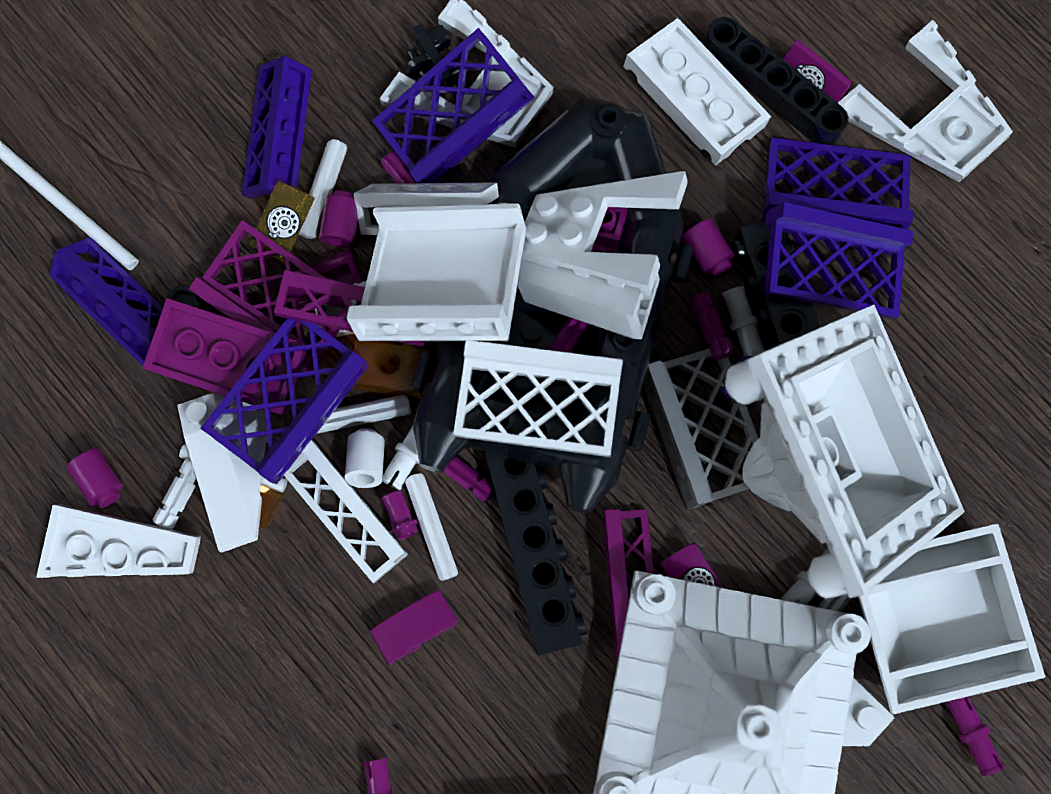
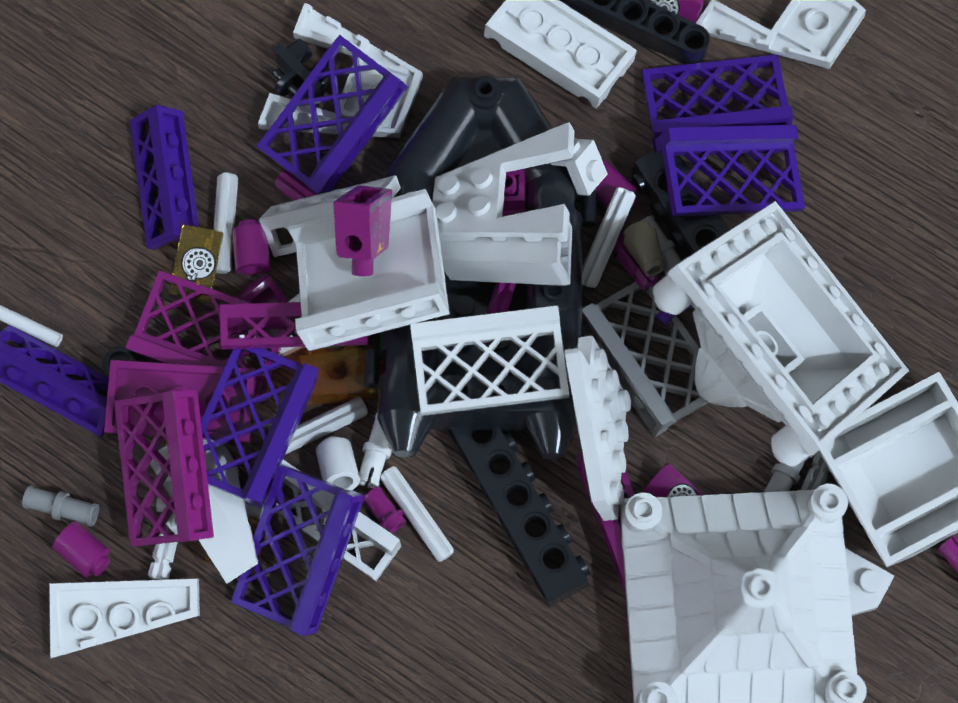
camera: 15 degrees left, 5 degrees down
(88, 428) = (60, 505): none -> light grey pin
(203, 422) = (184, 466): none -> magenta fence
(319, 560) = (326, 559): none -> dark purple fence
(413, 627) = (425, 608): magenta slope -> none
(443, 226) = (362, 226): none -> magenta torso
(469, 479) = (440, 460): magenta axle -> none
(636, 491) = (601, 422): none -> white wing
(689, 221) = (585, 167): none -> white bracket
(692, 296) = (606, 236): none -> white axle
(727, 316) = (644, 247): none -> dark tan cone

